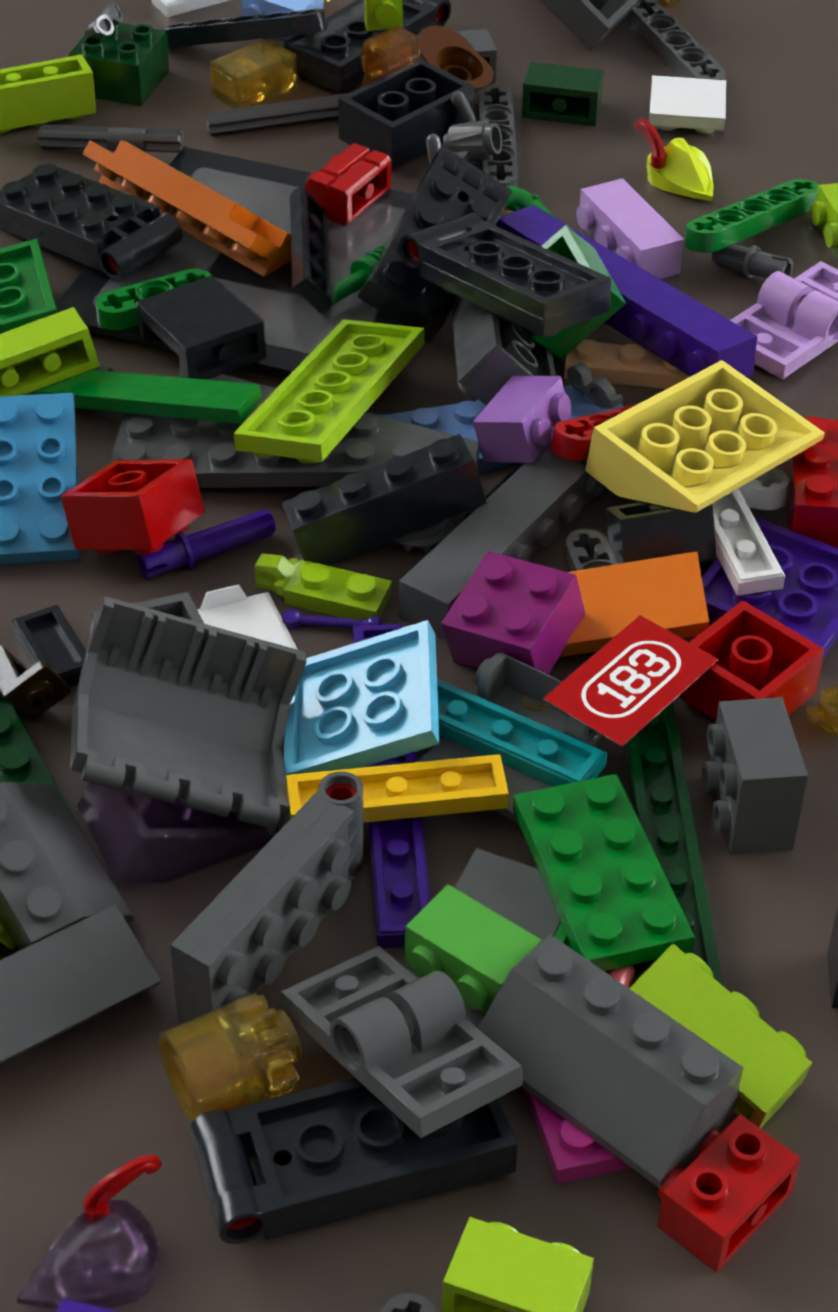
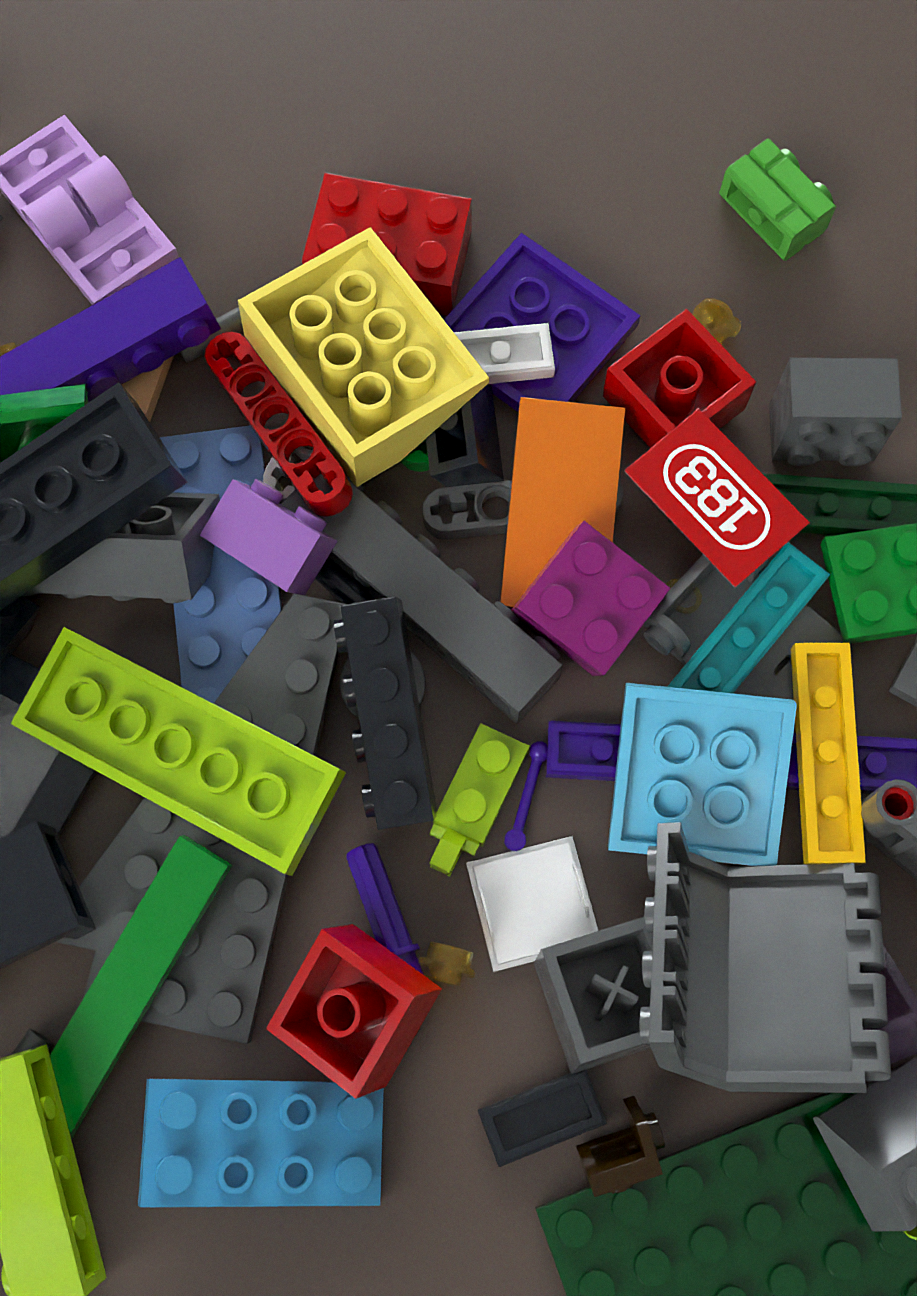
camera: 80 degrees left, 30 degrees up
(178, 572) = (447, 963): none -> clear yellow plate
(597, 390) = (201, 451): dark grey piece -> none

